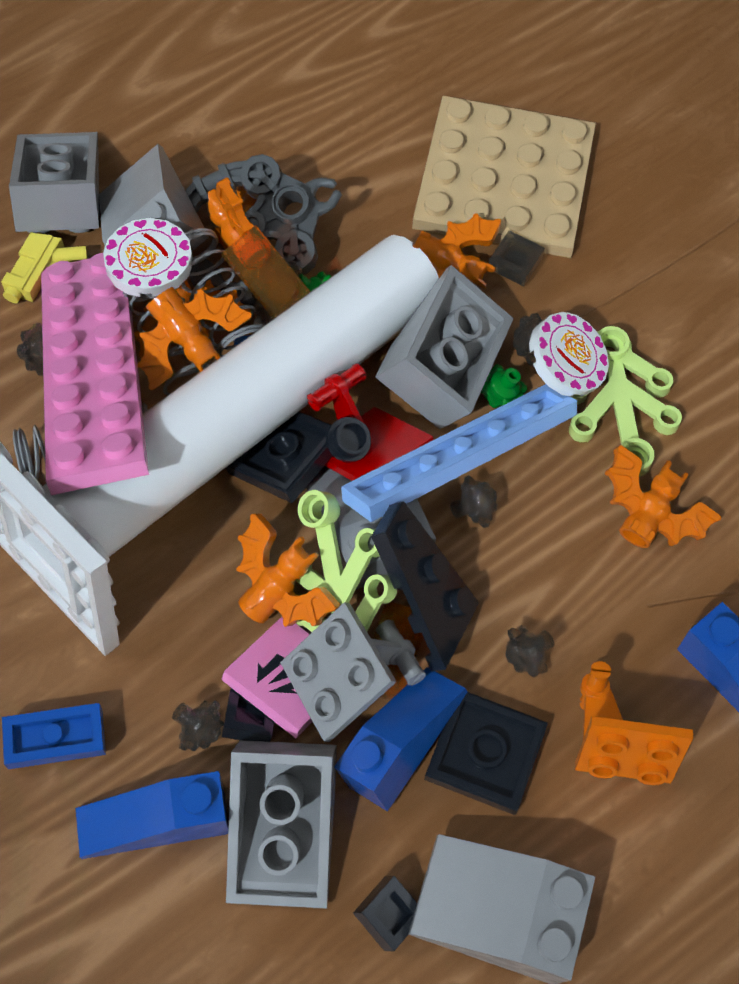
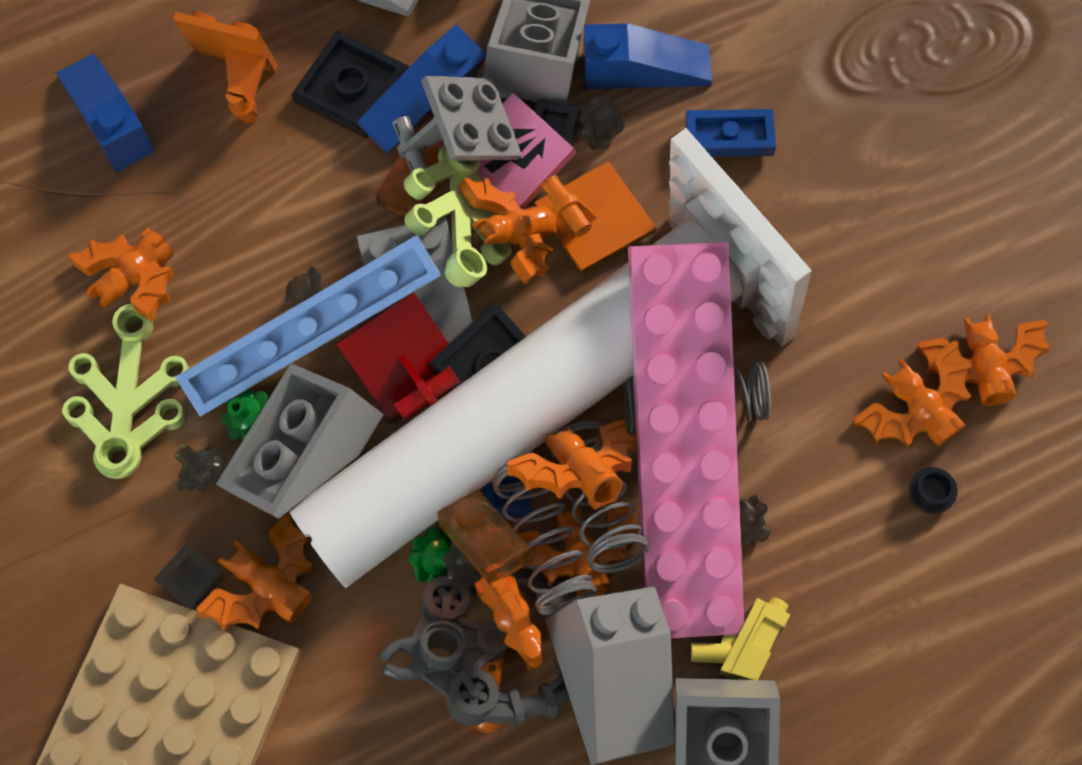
camera: 170 degrees left, 5 degrees up
(147, 257) = (616, 550): white tile -> none
(199, 619) = (595, 216): none -> orange plate
(348, 439) = (423, 342): black plate -> none
(432, 587) = (376, 191): black wing -> none
(528, 650) = (292, 150): clear smoke plant -> none
(569, 354) = (168, 423): white tile -> none

